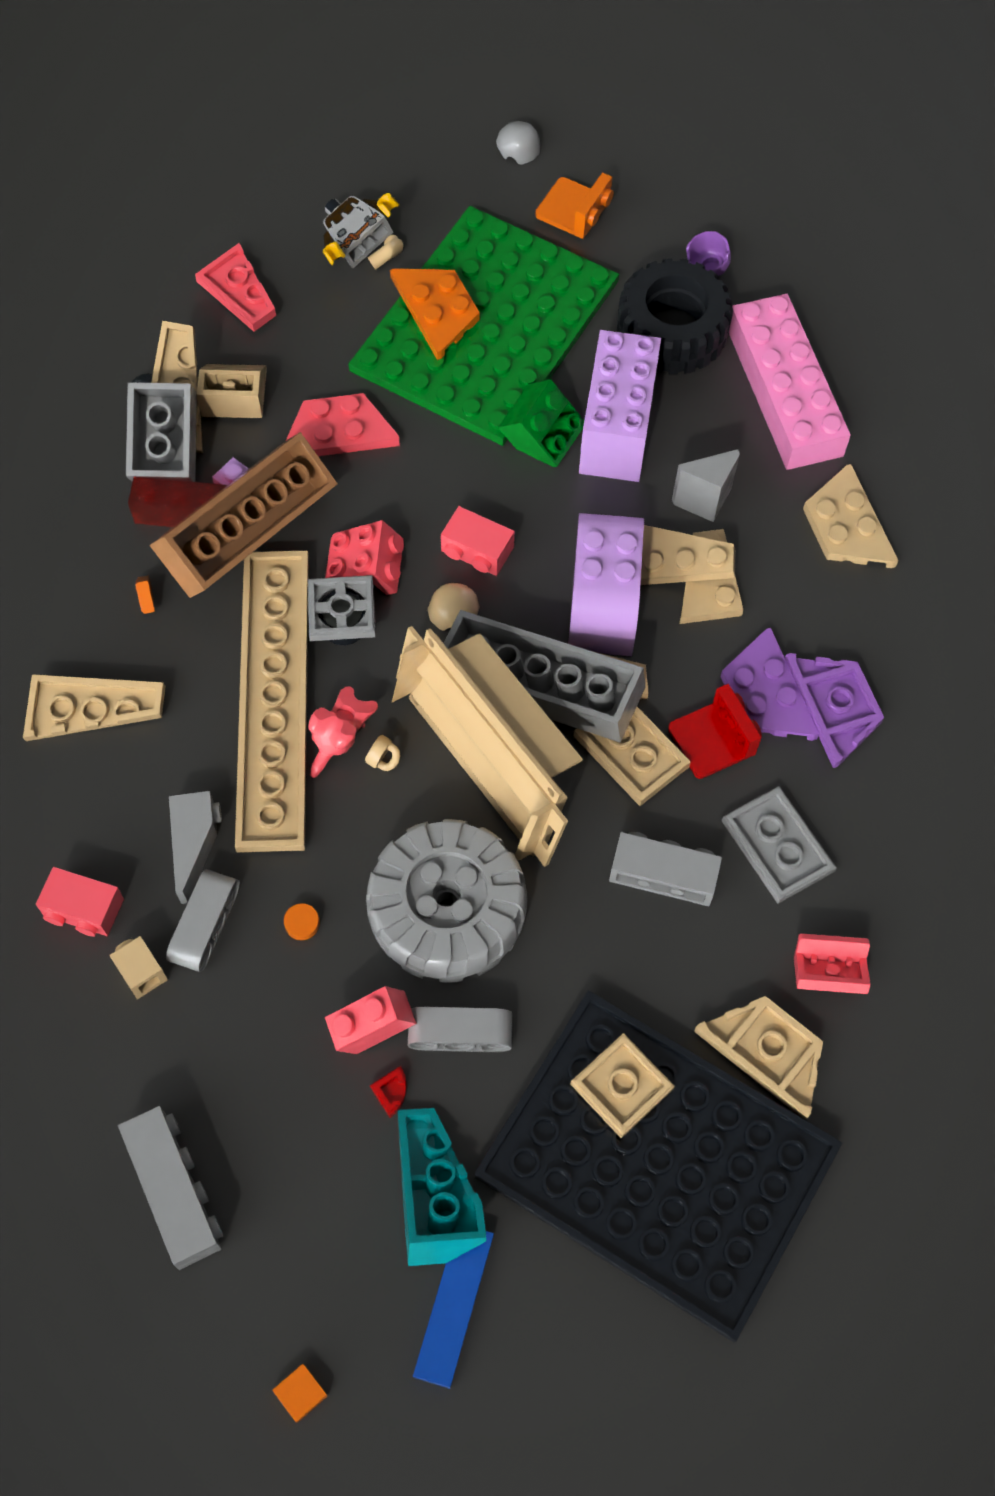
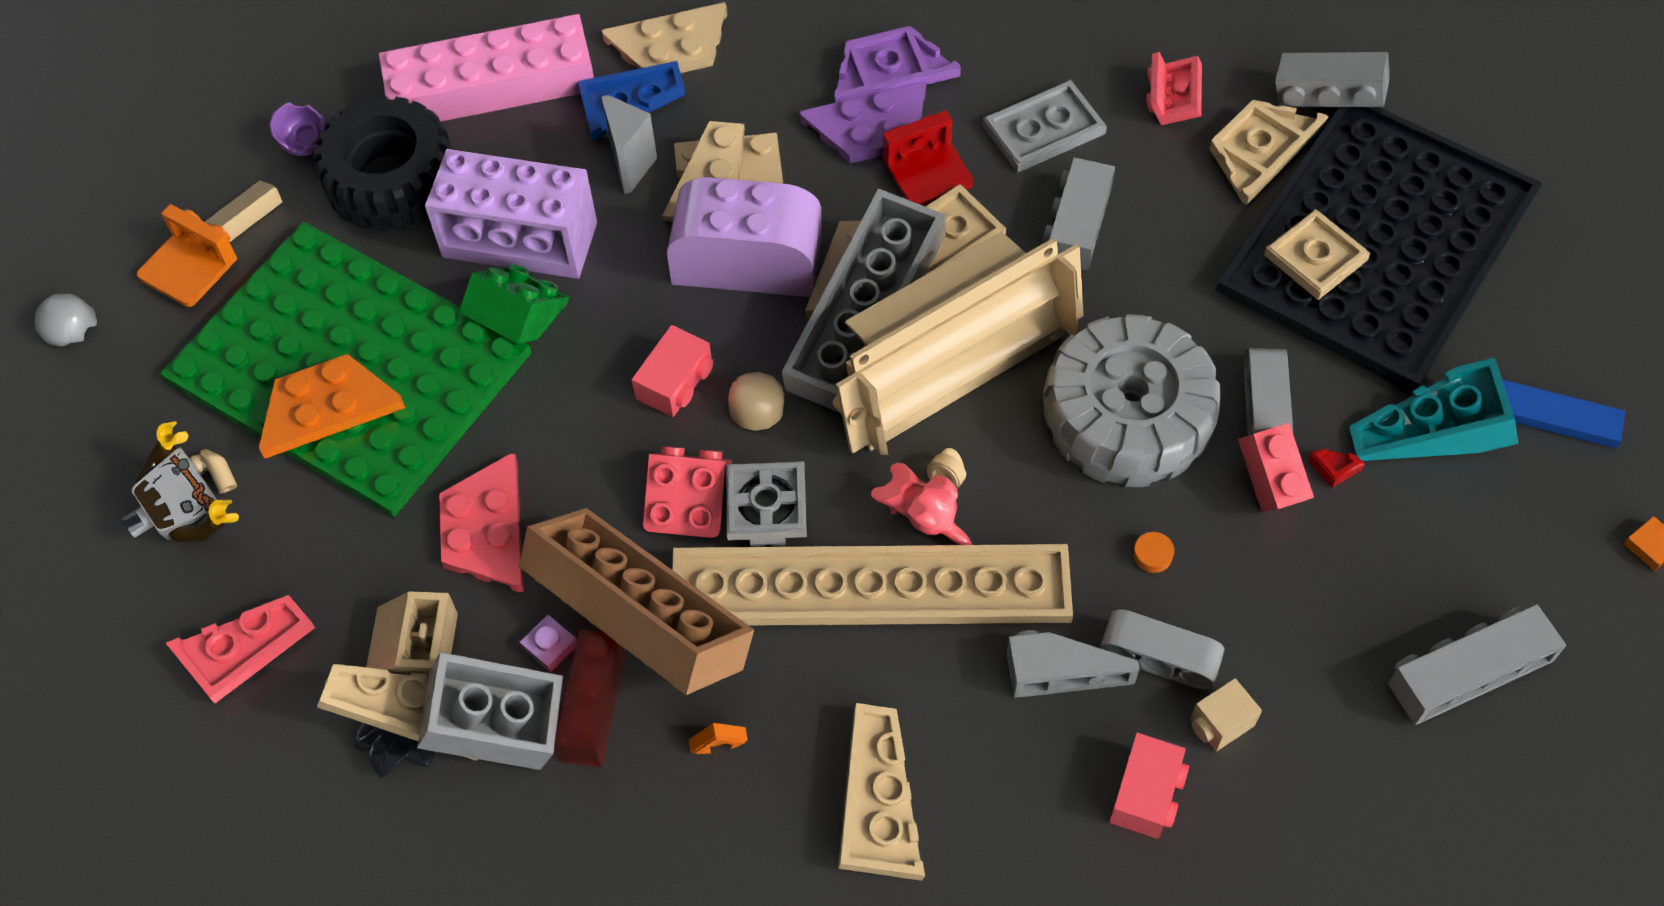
camera: 85 degrees left, 5 degrees down
(629, 236) = (246, 209): none -> tan slope
(776, 491) = (642, 88): none -> blue wing
(849, 1121) = (1333, 79): none -> light grey brick

